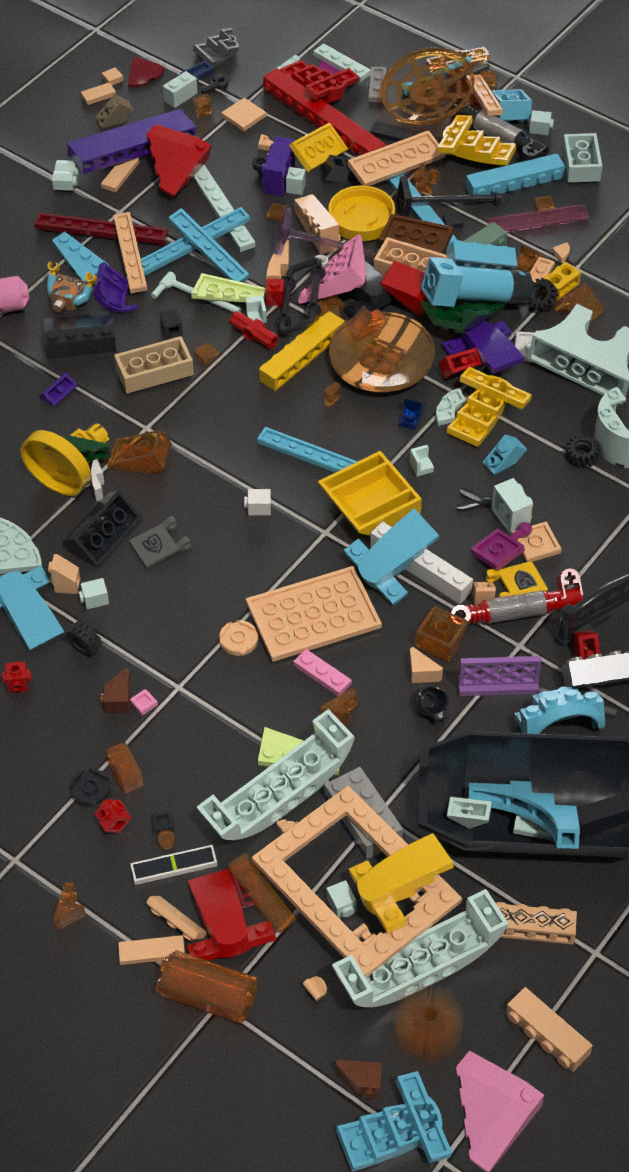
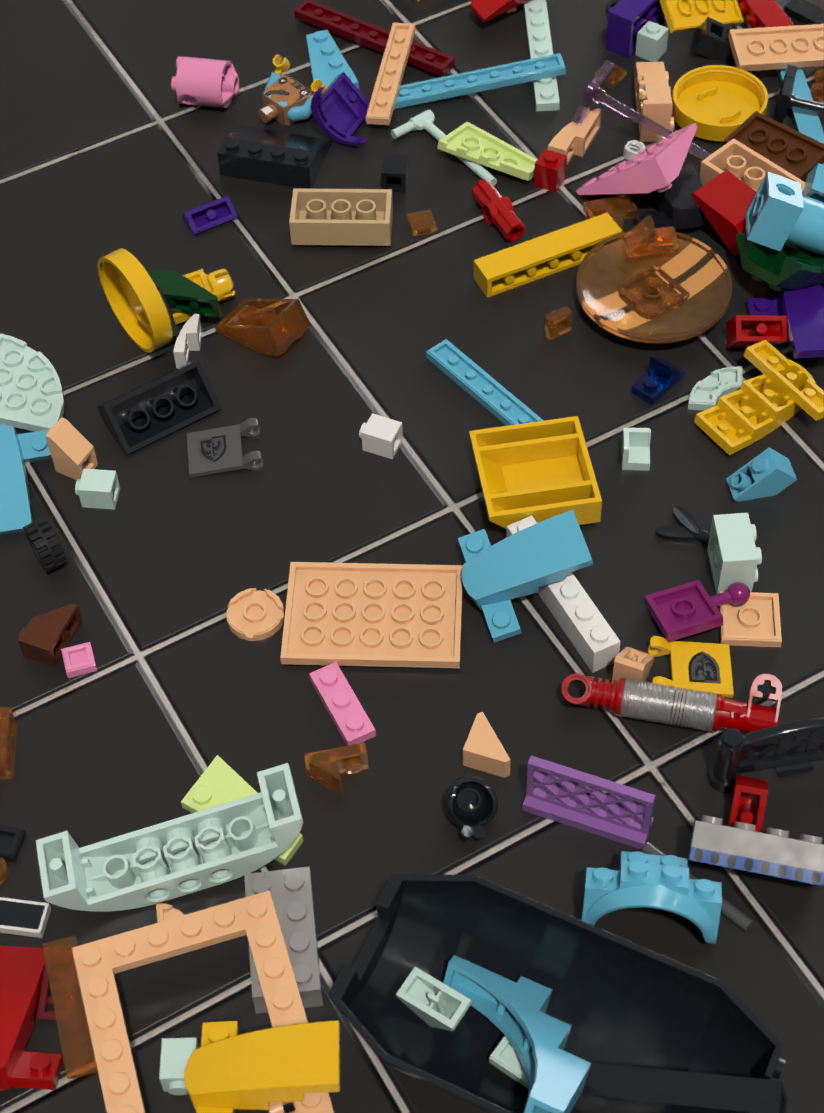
camera: 25 degrees right, 0 degrees up
(208, 246) = (491, 90): medium azure plate -> none
(256, 308) = (515, 185): light aqua panel -> none
(312, 308) = (576, 166): black bar -> none
(441, 633) = (535, 706): clear orange slope -> none

